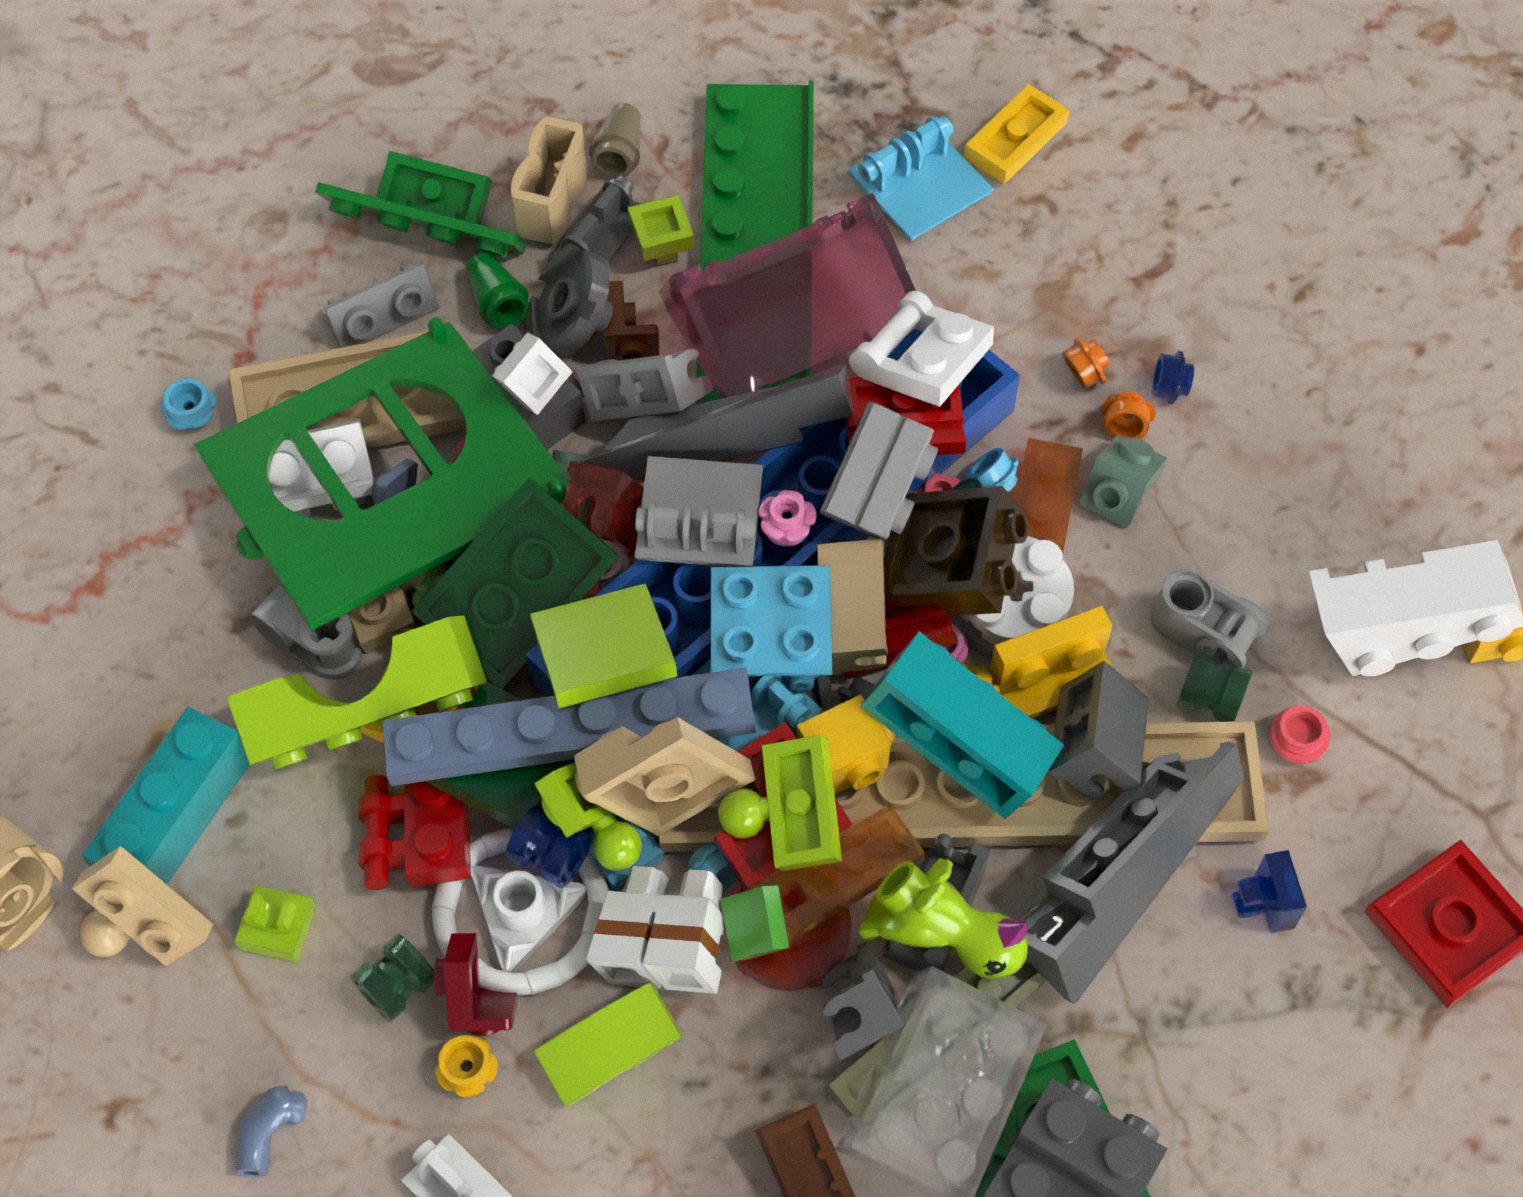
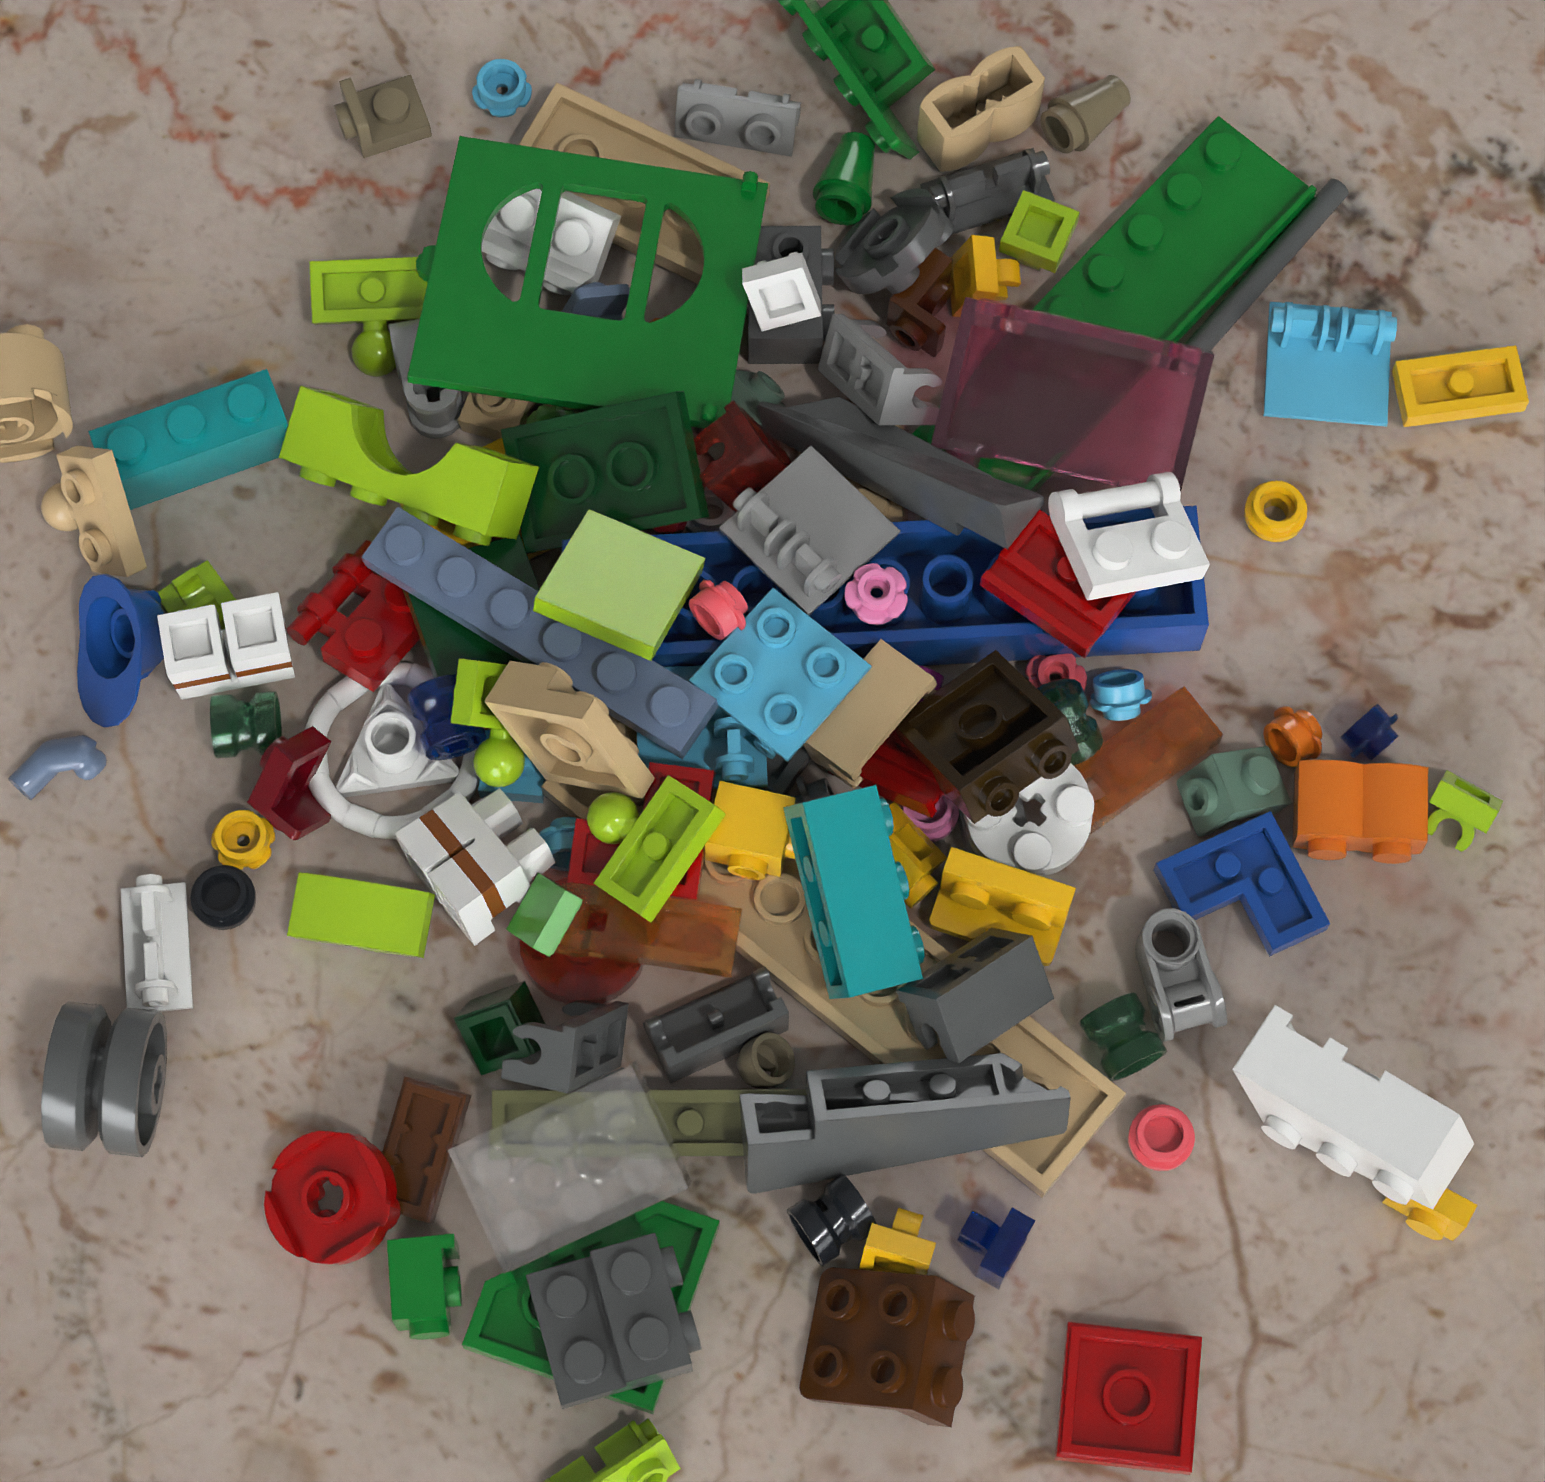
camera: 40 degrees right, 10 degrees up
(112, 484) = (382, 115): none -> dark tan bracket
(218, 606) = (371, 295): none -> lime plate
(239, 1001) = (116, 647): none -> blue piece
(331, 943) = (212, 660): none -> white hips
(488, 1120) = (223, 897): none -> black plate
(642, 284) = (980, 274): none -> yellow tile
(687, 609) = (719, 608): none -> coral plate
(787, 1039) = (489, 1025): none -> dark green slope
(825, 144) = (1269, 265): none -> dark grey bar
(878, 473) = (978, 617): light grey brick -> none
(931, 913) = (682, 1024): lime animal -> none
(977, 278) = (1279, 495): none -> yellow plate
(998, 896) = (766, 1053): none -> dark tan hinge
(1087, 362) = (1304, 658): orange plate -> none
(1148, 972) = (831, 1219): none -> black wheel
(1189, 515) = (1248, 866): none -> blue plate
(1214, 426) = (1360, 809): none -> orange brick
(1216, 957) = (899, 1247): none -> yellow tile
(1264, 1026) = (888, 1343): none -> reddish brown bracket
(1275, 374) = (1465, 804): none -> lime tile

